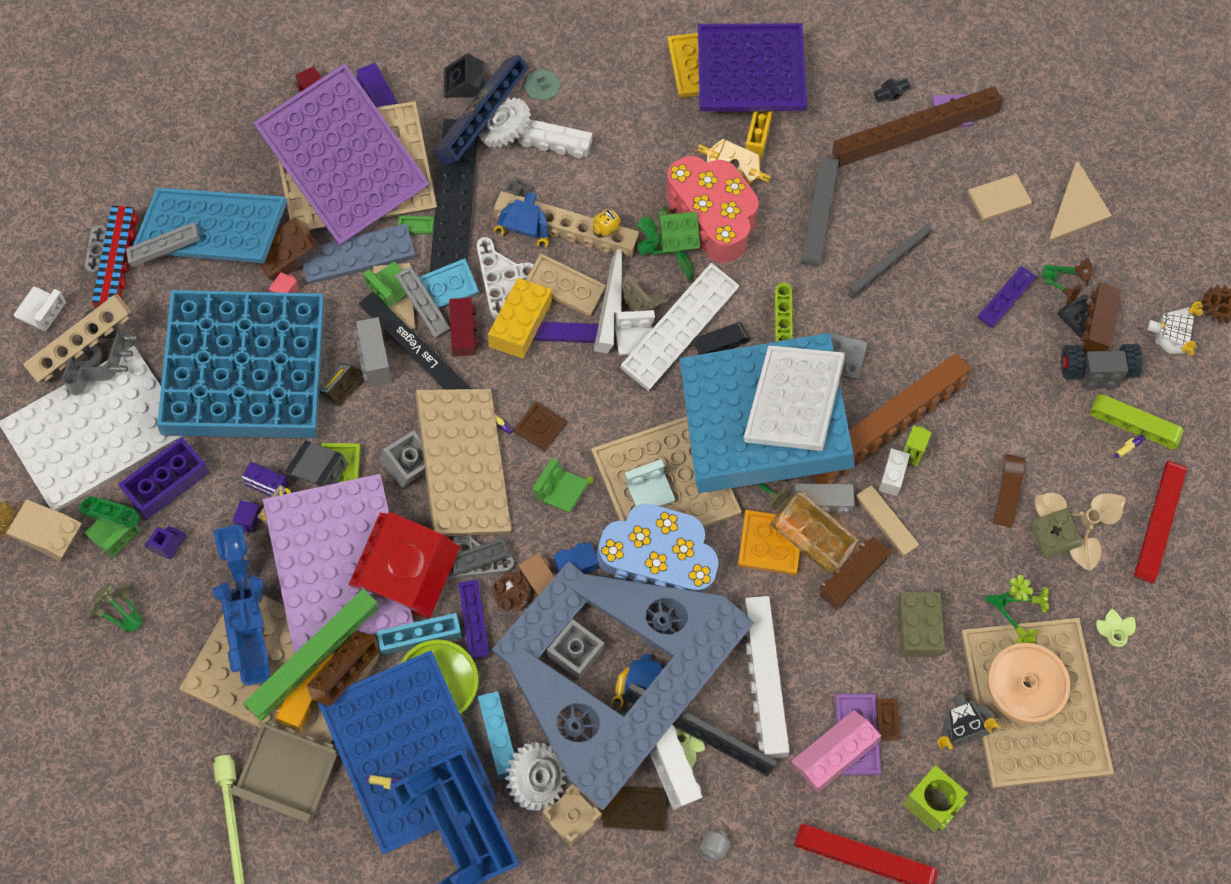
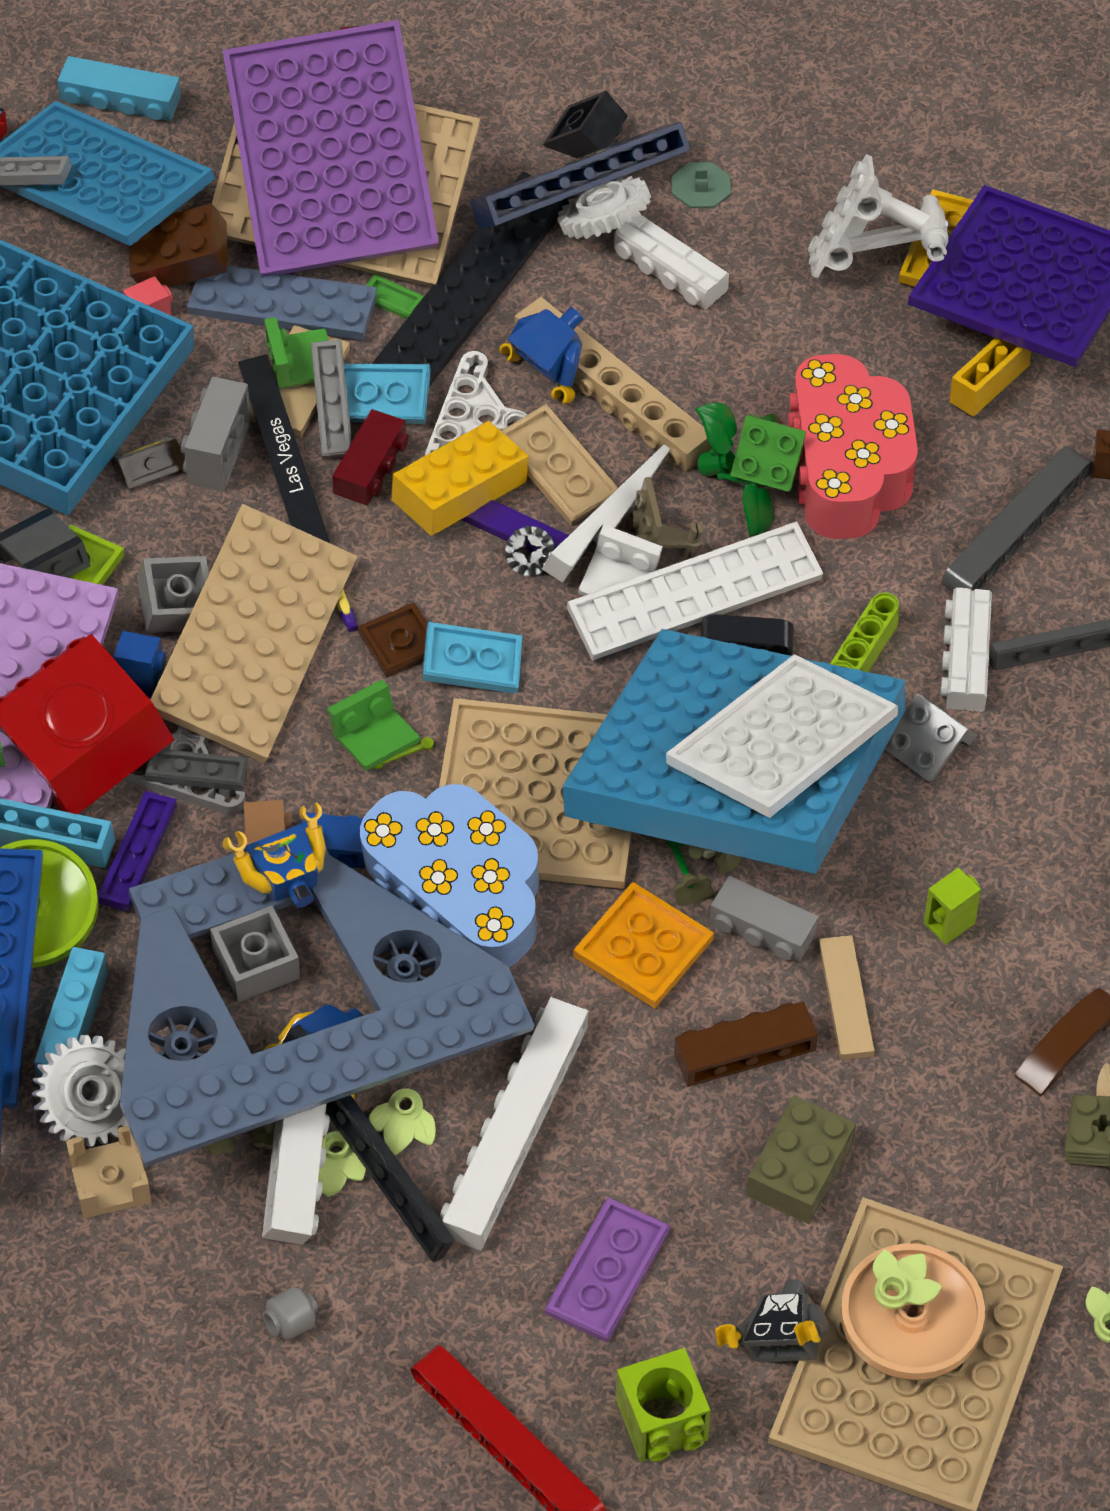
camera: 30 degrees right, 10 degrees down
(189, 164) = (119, 88): none -> medium azure brick
(375, 85) = (447, 83): dark purple brick -> none
(415, 508) = (141, 660): none -> blue brick
(511, 591) = (207, 835): reddish brown dish -> none
(519, 187) = (567, 299): dark grey plate -> none
(569, 593) = (283, 862): none -> torso
(582, 334) = (518, 561): none -> gear
(585, 419) = (472, 657): none -> medium azure tile
(606, 223) = (666, 399): yellow head -> none
(637, 809) = (208, 1210): dark brown tile -> none
(649, 61) = (864, 202): none -> white plate
(649, 485) = (506, 776): light aqua bracket -> none
(707, 708) = (401, 1125): none -> yellowish green plate
(727, 151) = (923, 383): yellow plate -> none
(814, 532) = (712, 951): clear yellow brick -> none
(836, 750) = (557, 1275): bright pink slope -> none
(837, 295) = (968, 649): none -> white brick
(888, 719) = (665, 1269): reddish brown plate -> none
(894, 472) = (897, 931): white brick -> none
(902, 411) = (927, 850): dark orange brick -> none
(1018, 668) = (905, 1278): none -> yellowish green plate
(1020, 591) = (976, 1165): lime plant -> none

